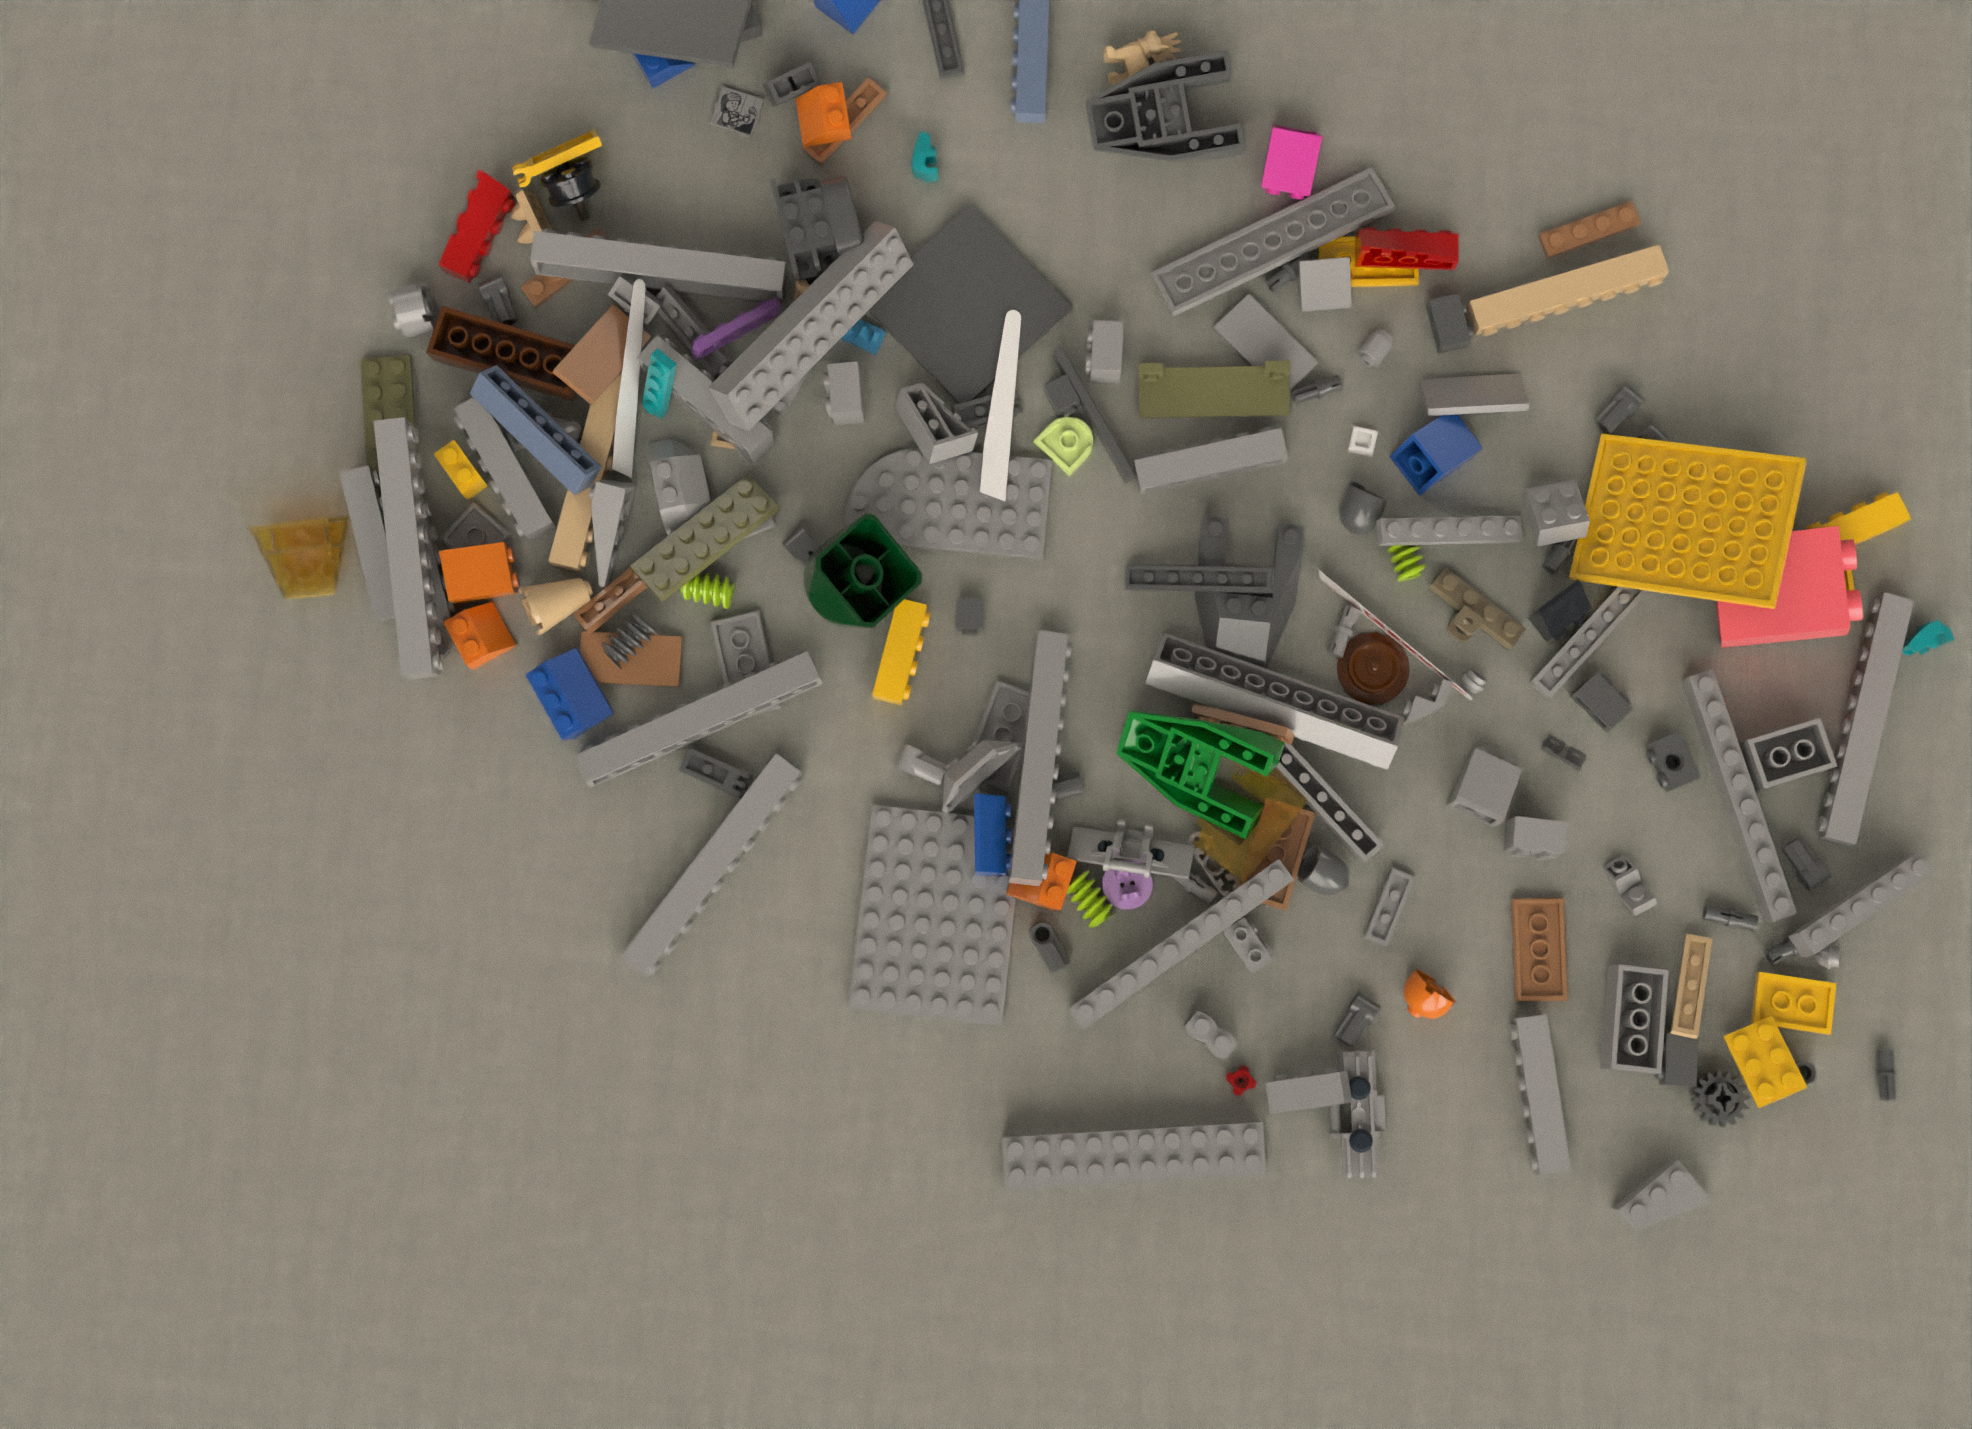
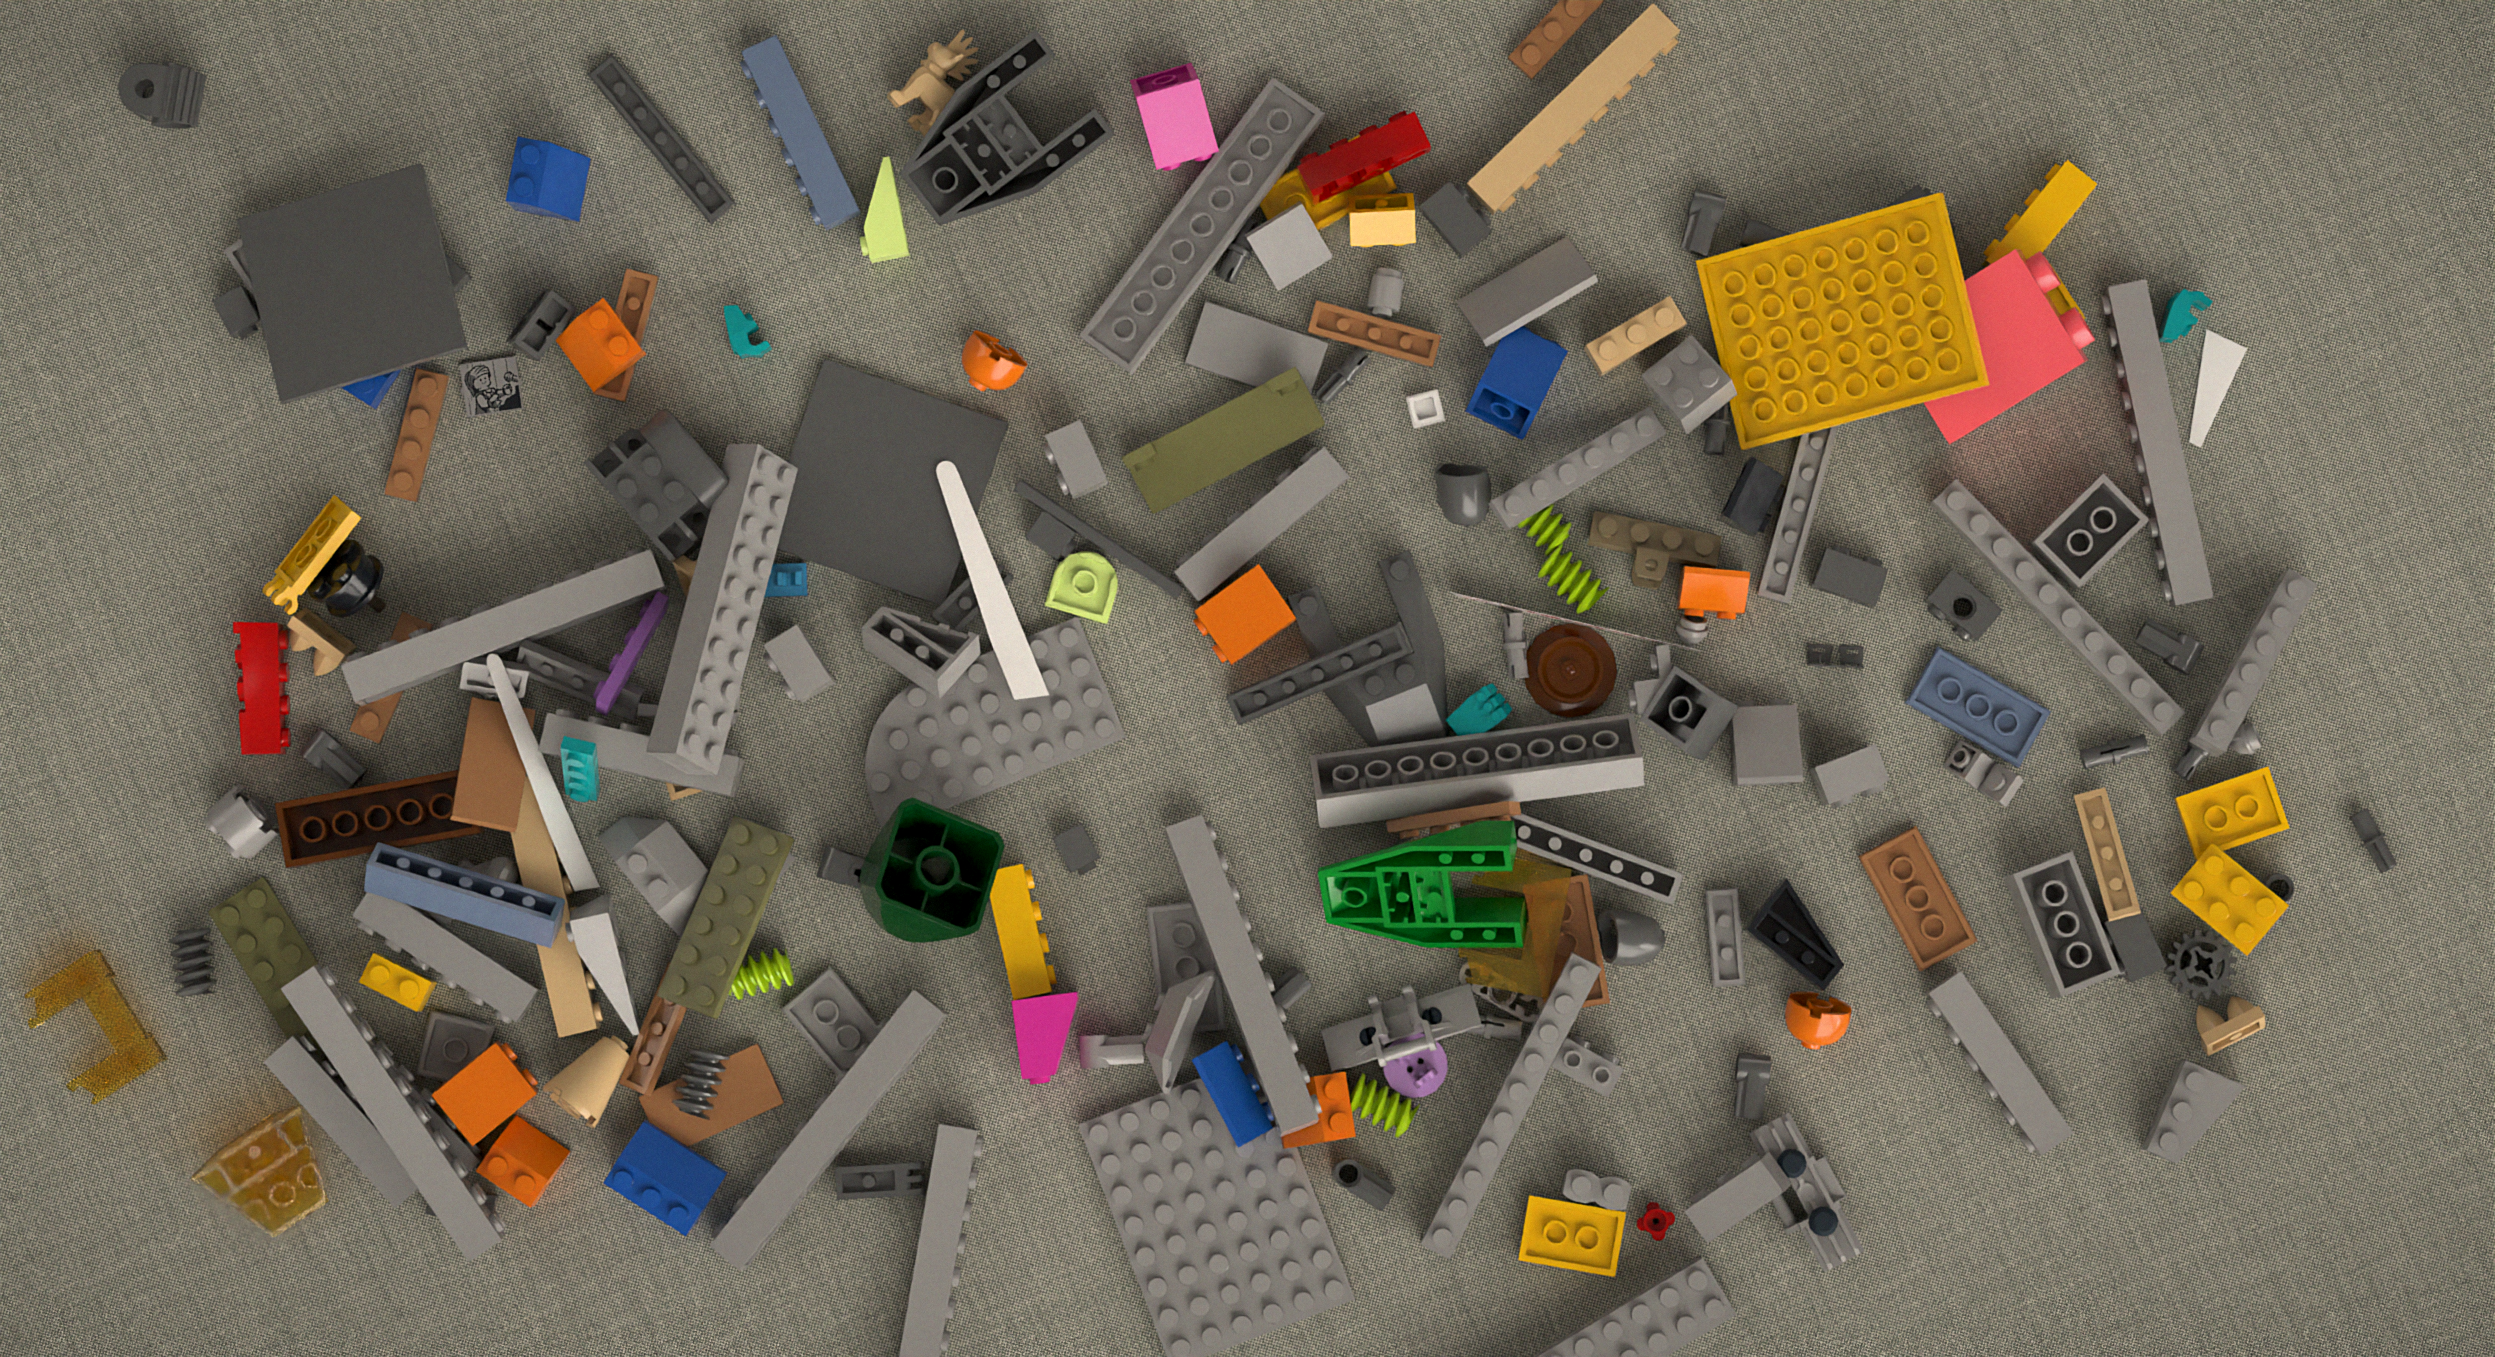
camera: 30 degrees left, 5 degrees up
(257, 366) = (134, 1047): none -> clear yellow wedge
(330, 386) = (193, 962): none -> dark grey piece
(670, 118) = (416, 435): none -> medium nougat plate
(881, 726) = (1042, 1033): none -> dark pink slope
(1058, 130) = (884, 222): none -> yellowish green slope
(1081, 260) = (991, 363): none -> orange cylinder
(1167, 515) = (1243, 616): none -> orange slope
(1176, 1060) = (1571, 1236): none -> yellow plate
(1296, 663) = (1479, 712): none -> teal hand
(1353, 372) = (1374, 334): none -> medium nougat plate
(1398, 297) = (1382, 219): none -> yellow brick
(1406, 605) = (1571, 580): none -> lime piece
(1439, 931) = (1793, 936): none -> black wedge
(1444, 736) = (1689, 713): none -> dark grey brick
(1502, 661) = (1712, 591): none -> orange slope
(1534, 462) = (1635, 336): none -> tan brick
(1647, 838) = (1977, 707): none -> sand blue tile
(1729, 1155) = (2218, 1034): none -> tan tile
(1930, 692) = (2217, 369): none -> white sticker

